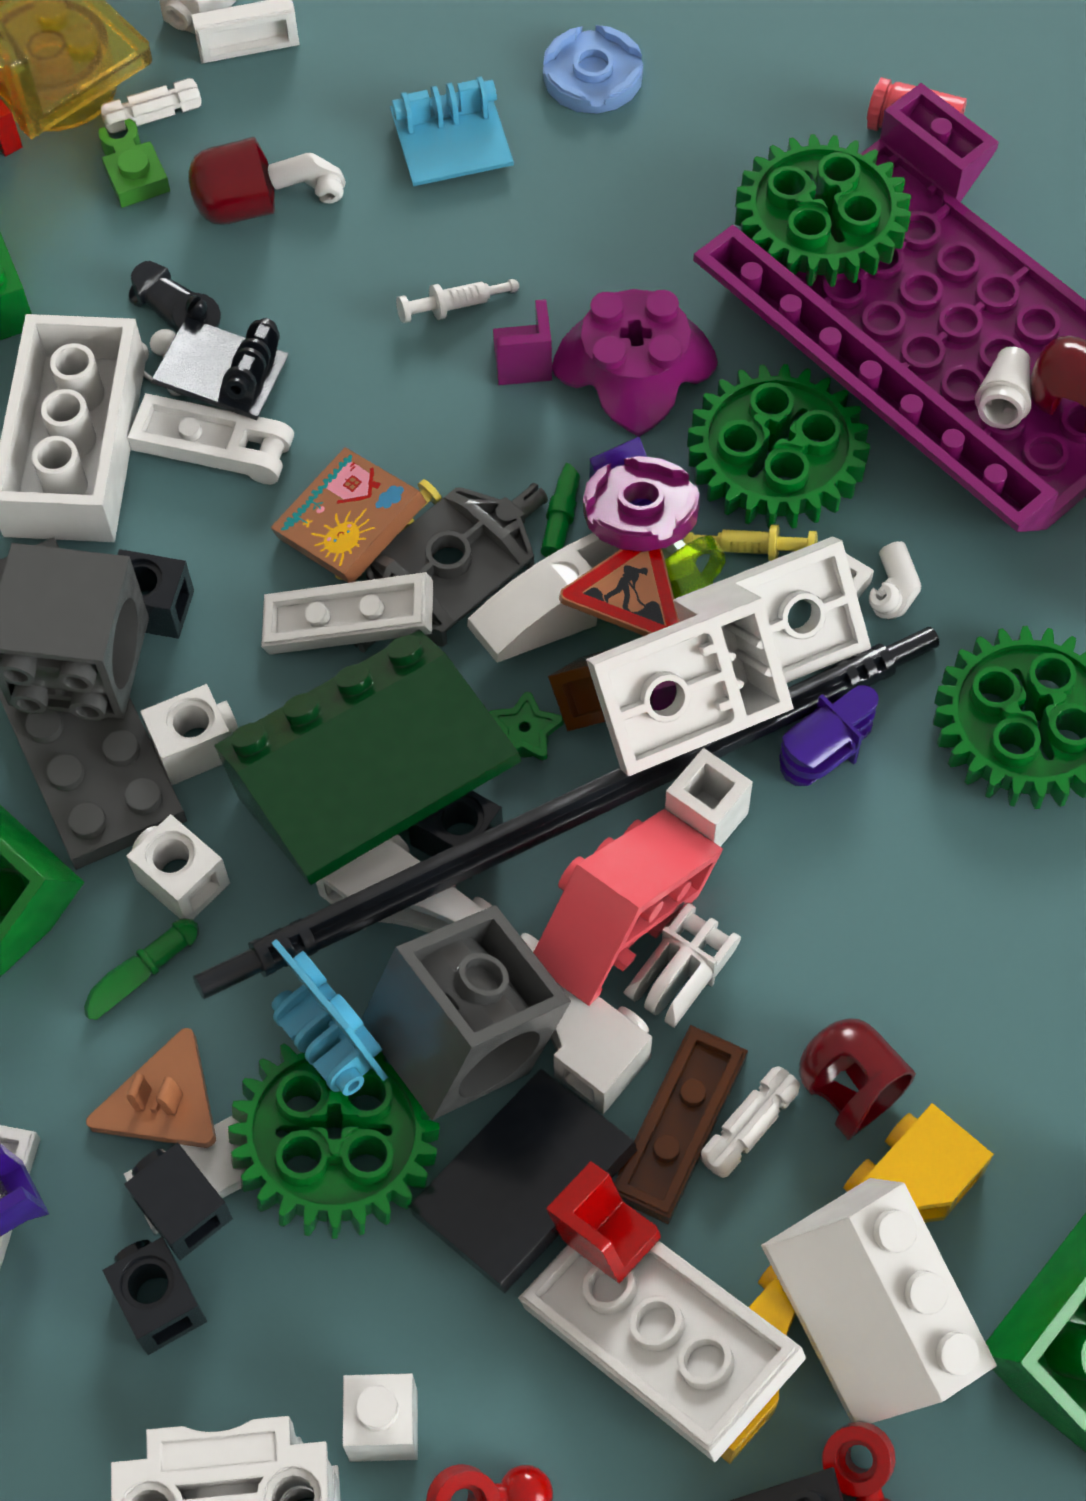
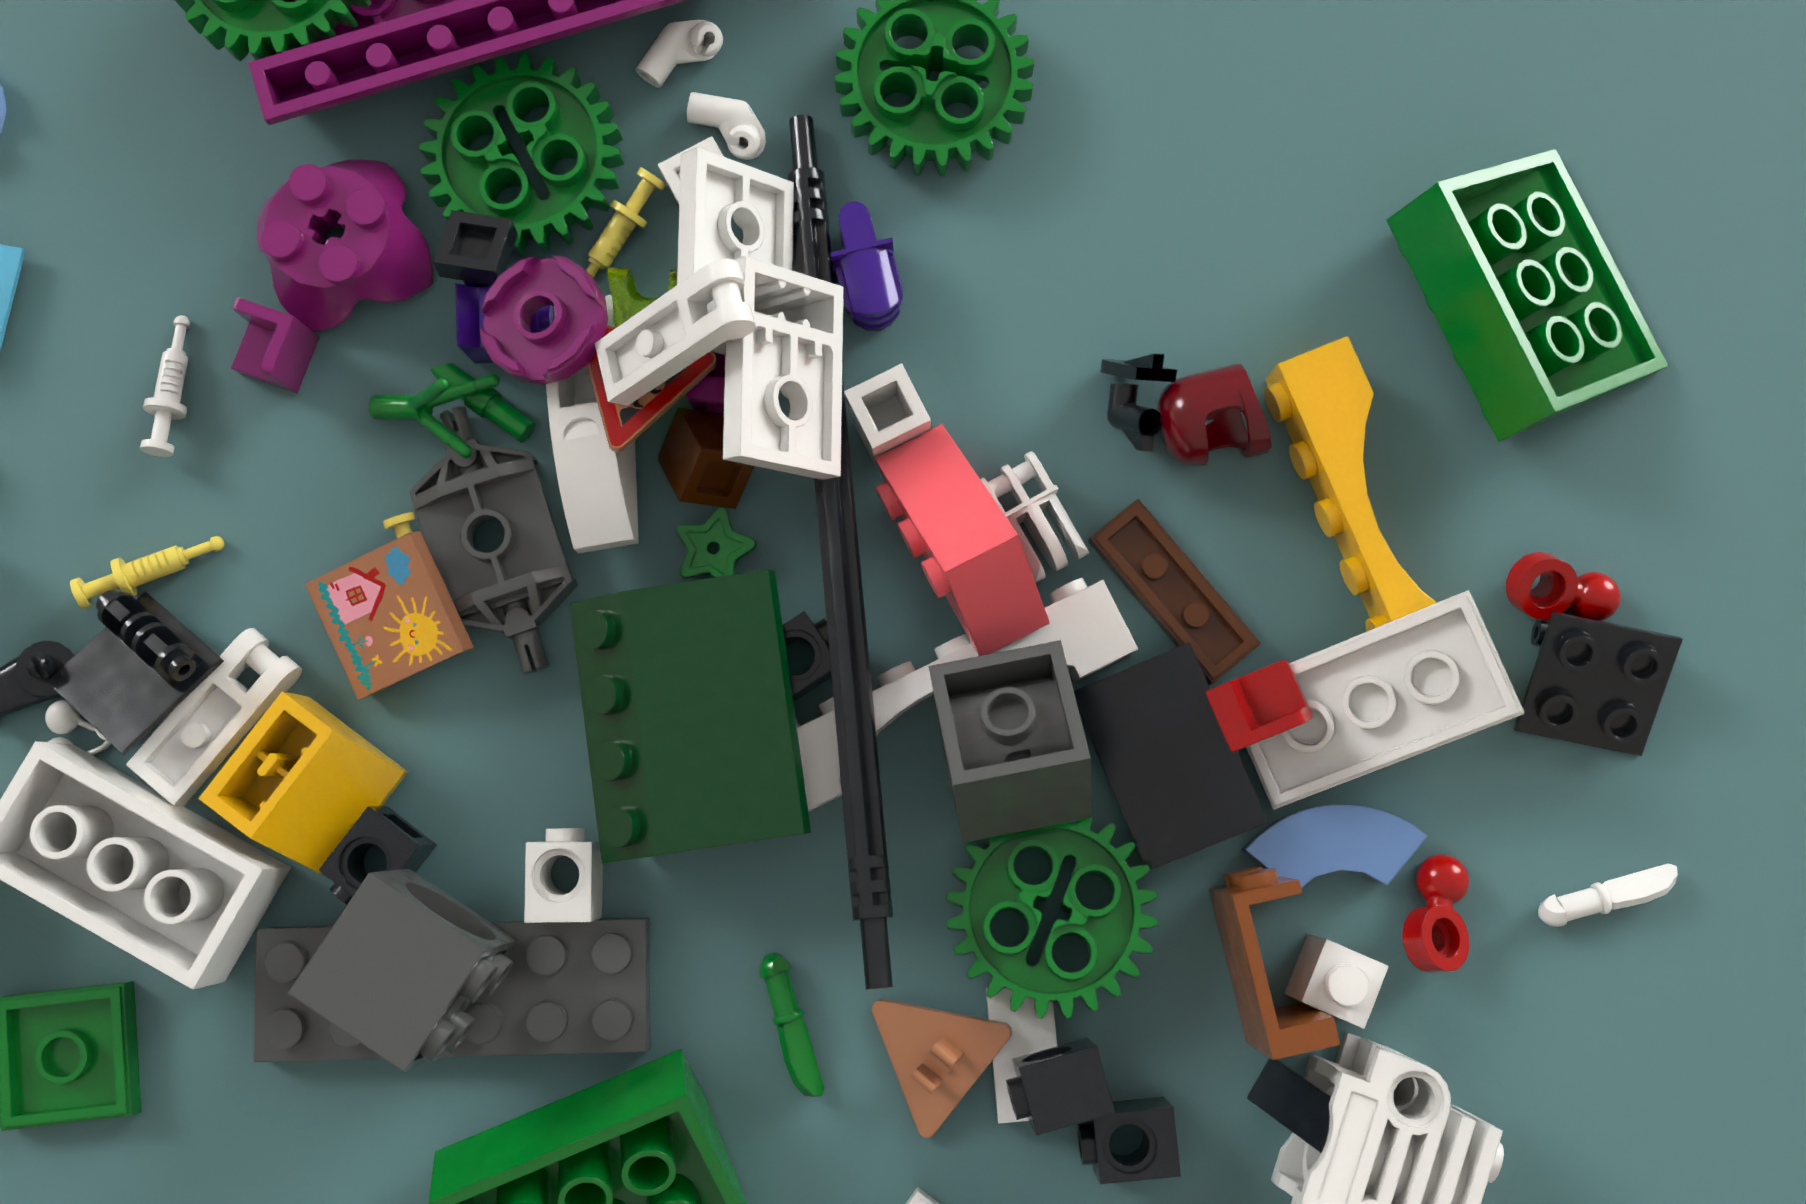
camera: 65 degrees left, 20 degrees up
(185, 890) = (736, 947): white brick -> none
(188, 508) = (301, 781): none -> yellow slope
(244, 1411) = (1293, 1103): none -> black sticker
(294, 335) = (140, 571): none -> light yellow piece
(325, 1027) = (930, 875): medium azure hinge -> none
(347, 613) = (506, 665): white tile -> none
(356, 1315) = (1271, 1031): none -> dark orange panel
(516, 1369) = (1336, 839): none -> medium blue tile
(528, 465) = (420, 407): none -> green plant
(674, 581) = (674, 332): none -> white plate
(676, 437) = (475, 248): none -> black tile
(750, 1121) = (1202, 528): white axle -> none
(835, 999) = (1135, 421): none -> black piece
(879, 1303) = (1437, 501): white slope -> none
(939, 517) = (679, 44): none -> white arm

